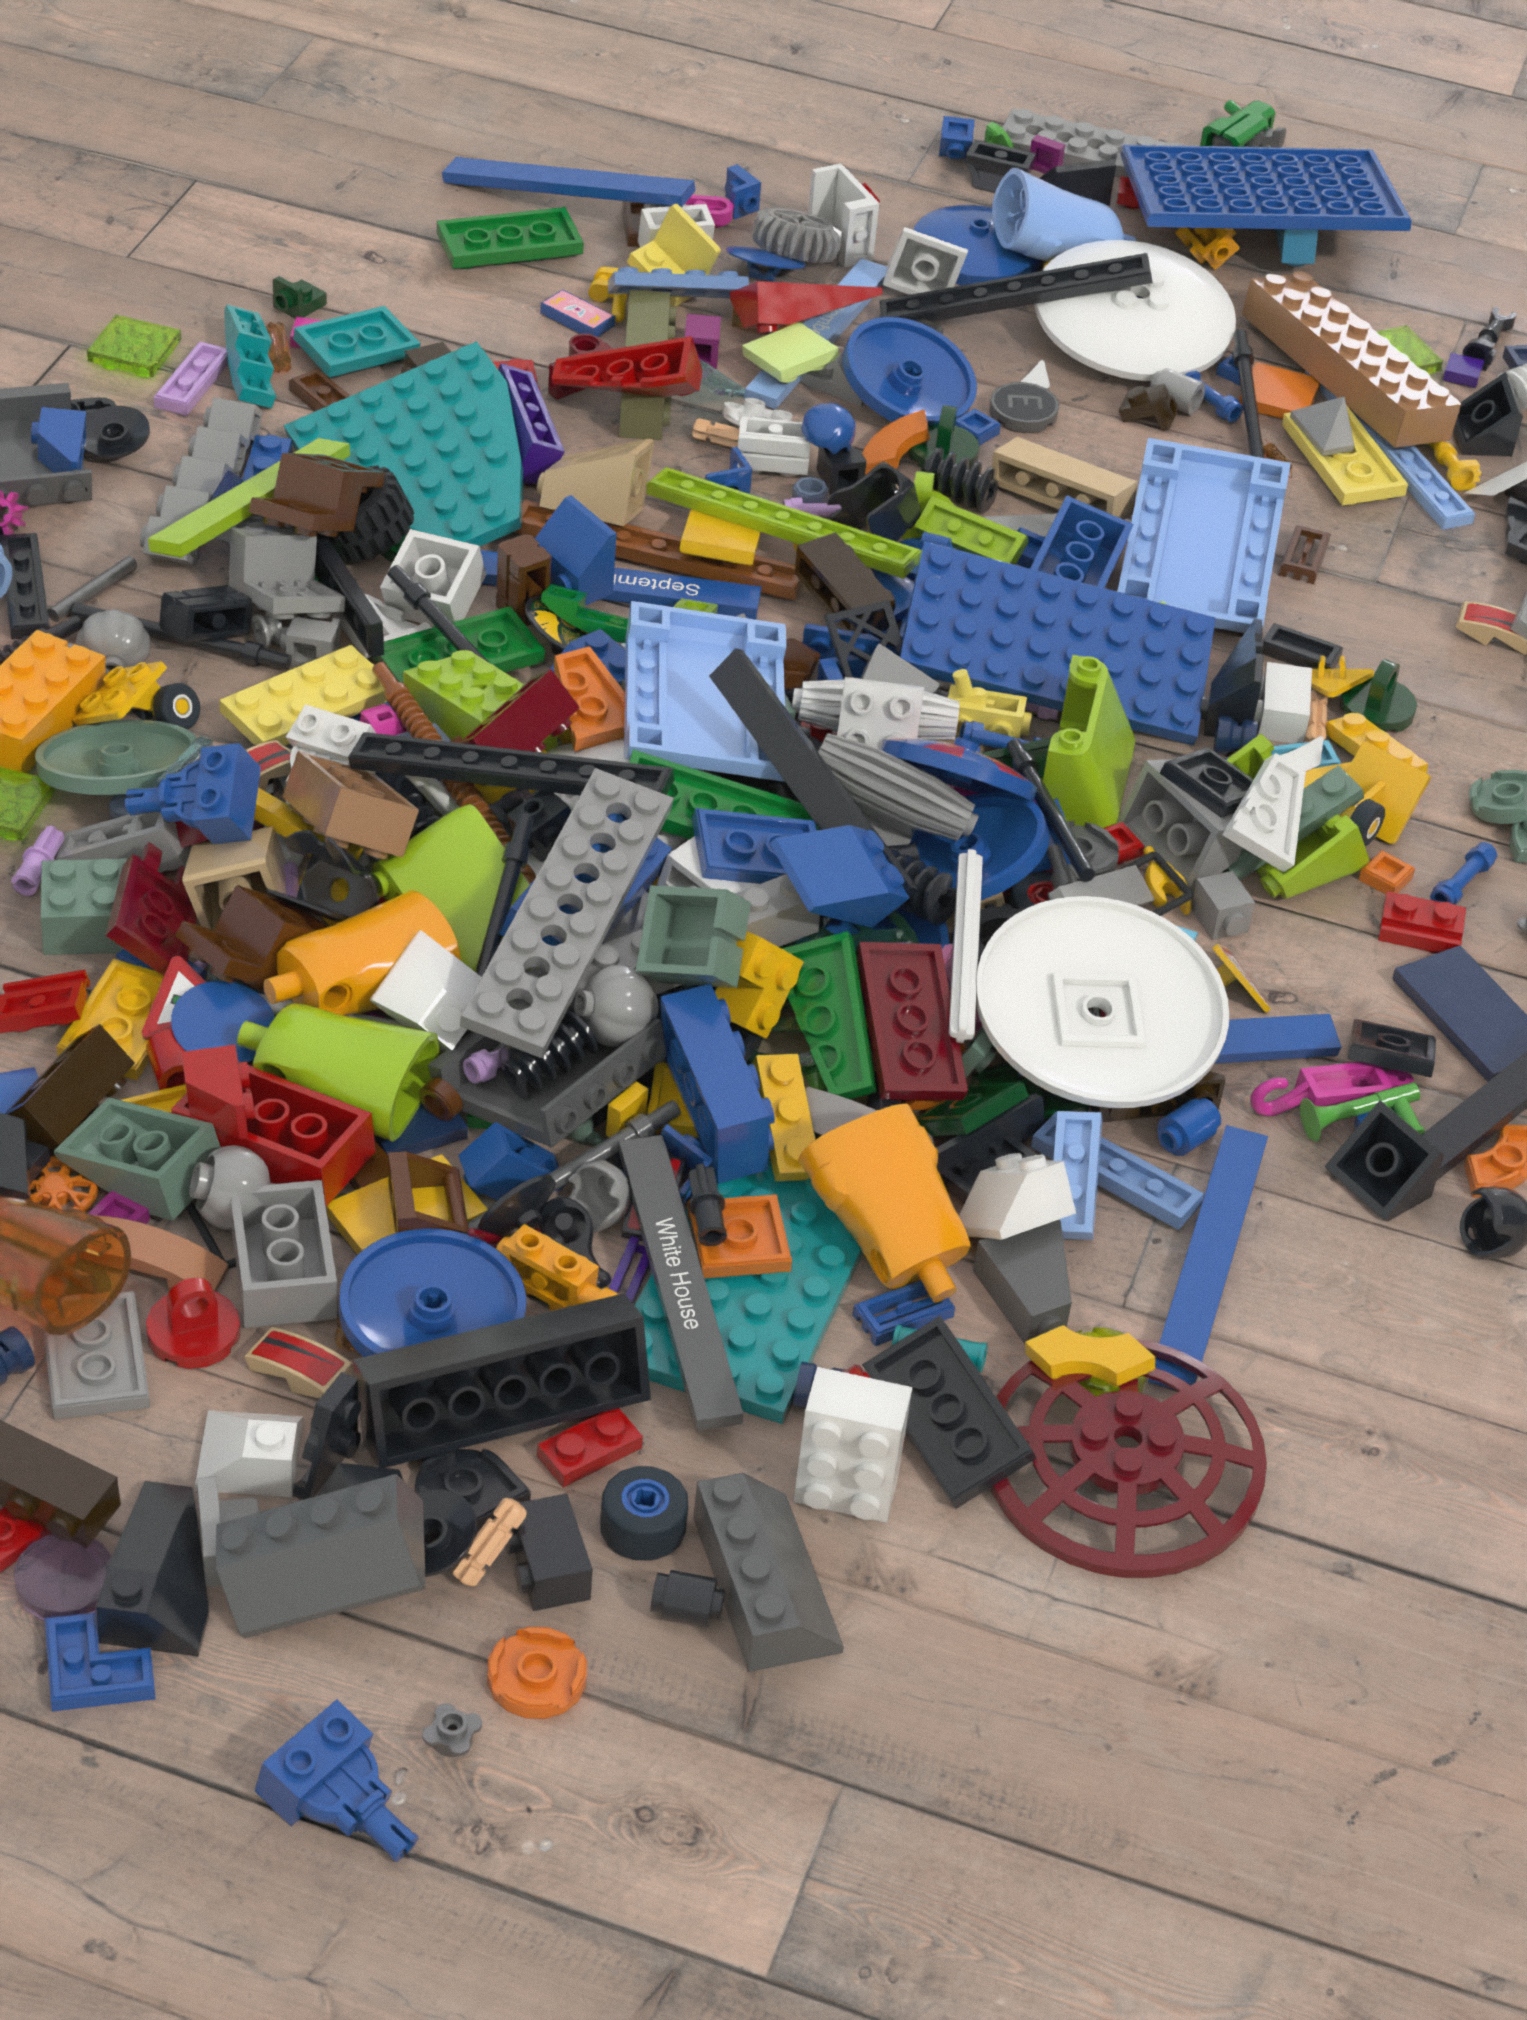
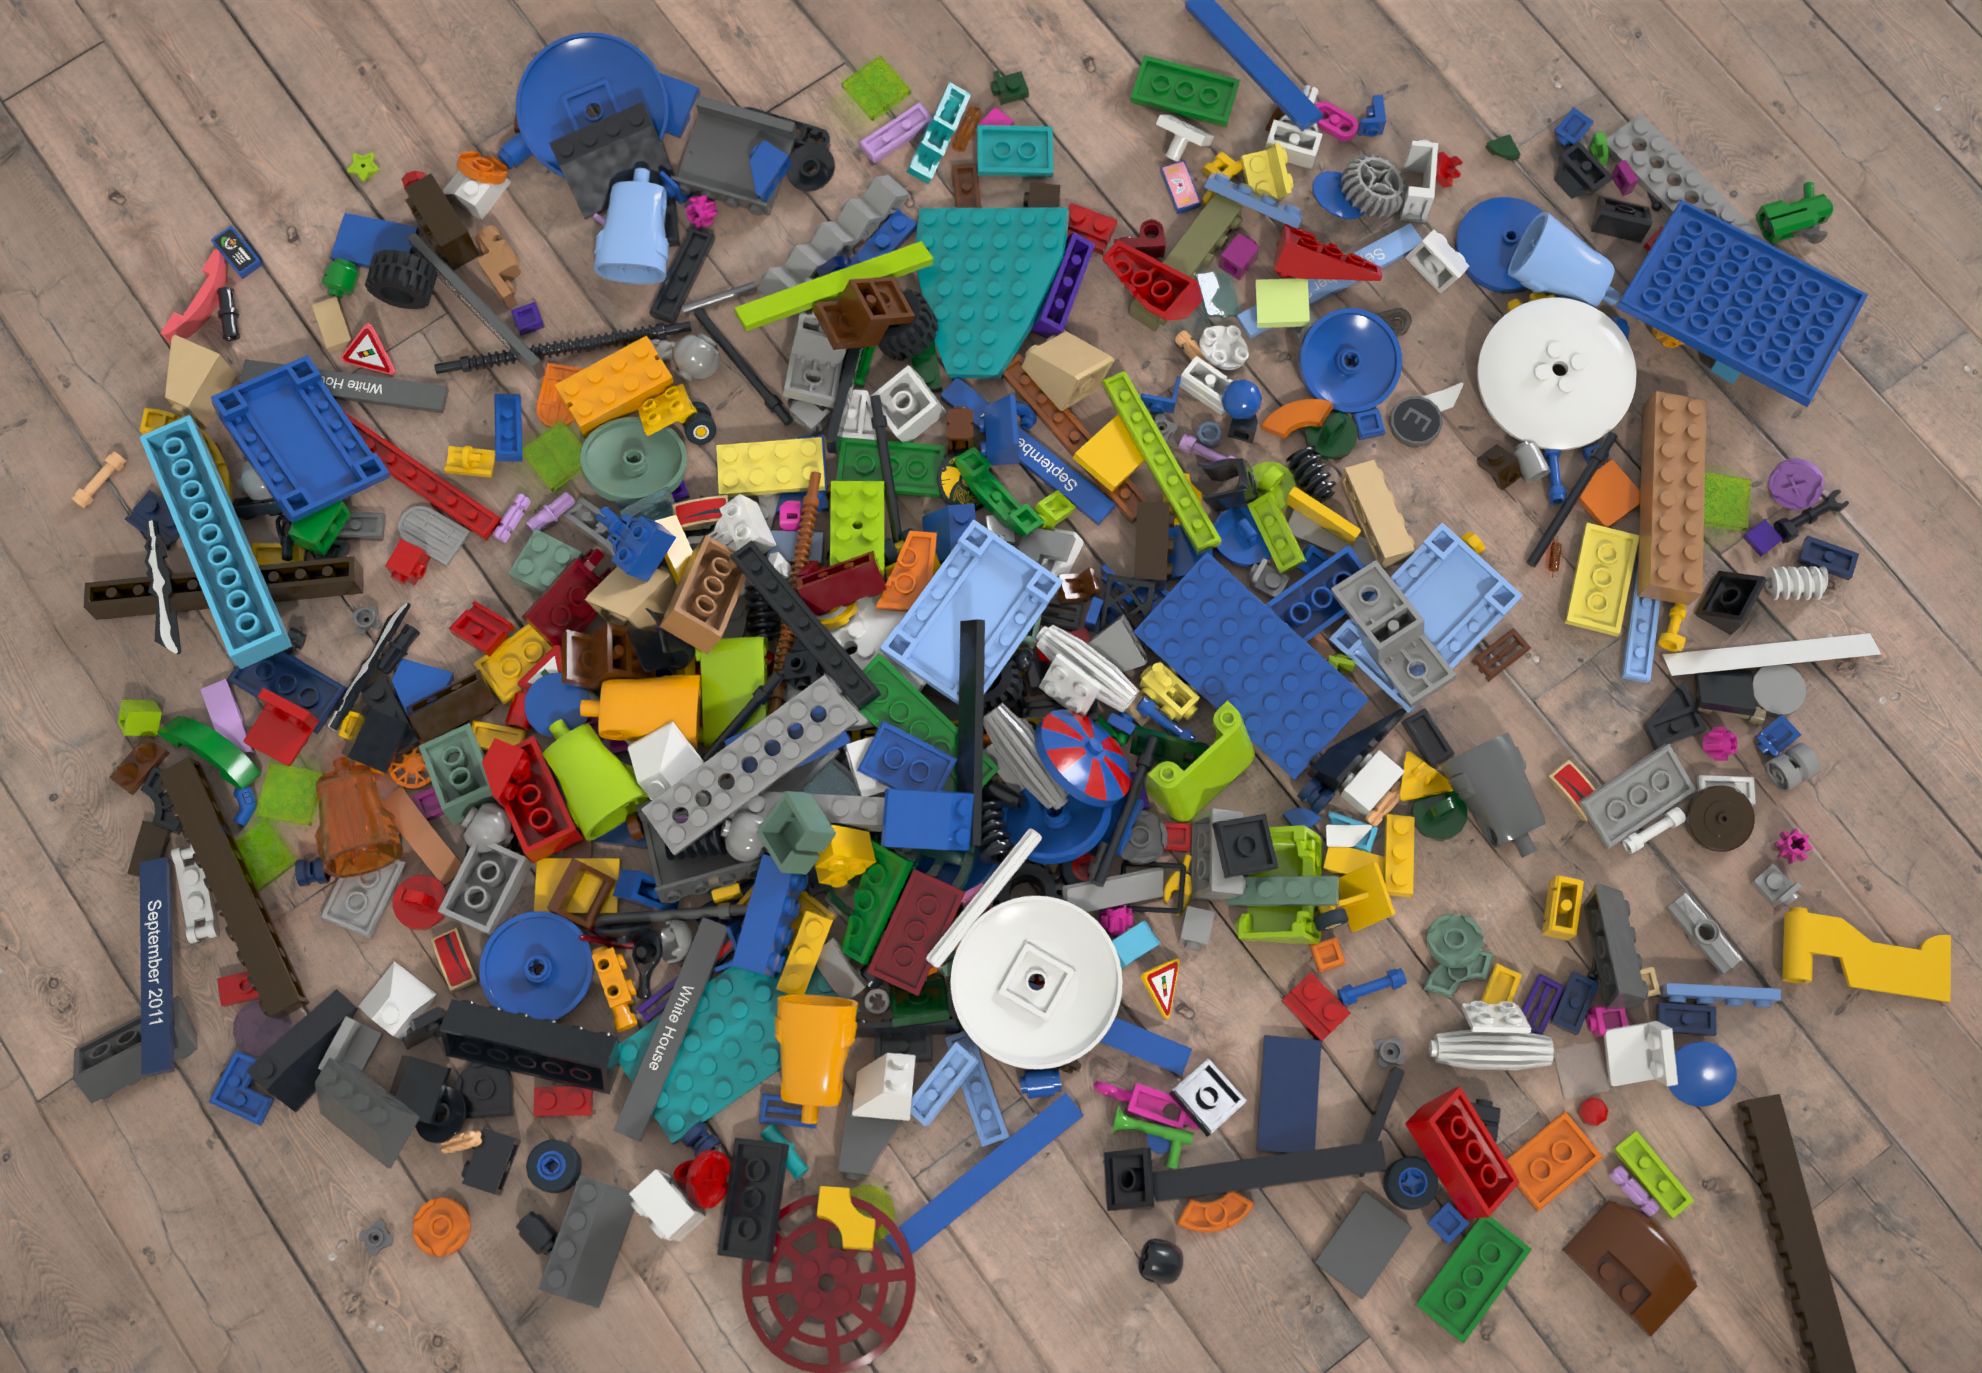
camera: 40 degrees right, 30 degrees up
(205, 613) = (757, 363): black brick -> none
(334, 1780) = (297, 1238): blue brick -> none
(546, 259) = (1183, 133): none -> white tile
(707, 1205) = (714, 992): black axle -> none
(753, 1242) = (727, 1016): orange tile -> none
(899, 175) = (1504, 148): none -> dark green tile
(1009, 500) = (1323, 516): none -> yellow tile
(1021, 290) = (1479, 322): black tile -> none
(1188, 548) = (1393, 633): none -> light grey bracket
(1270, 813) = (1261, 890): white wing -> none
(1326, 426) = (1599, 554): light grey slope -> none
(1427, 643) = (1497, 792): none -> dark grey torso
(1455, 307) = (1796, 483): none -> medium lavender tile

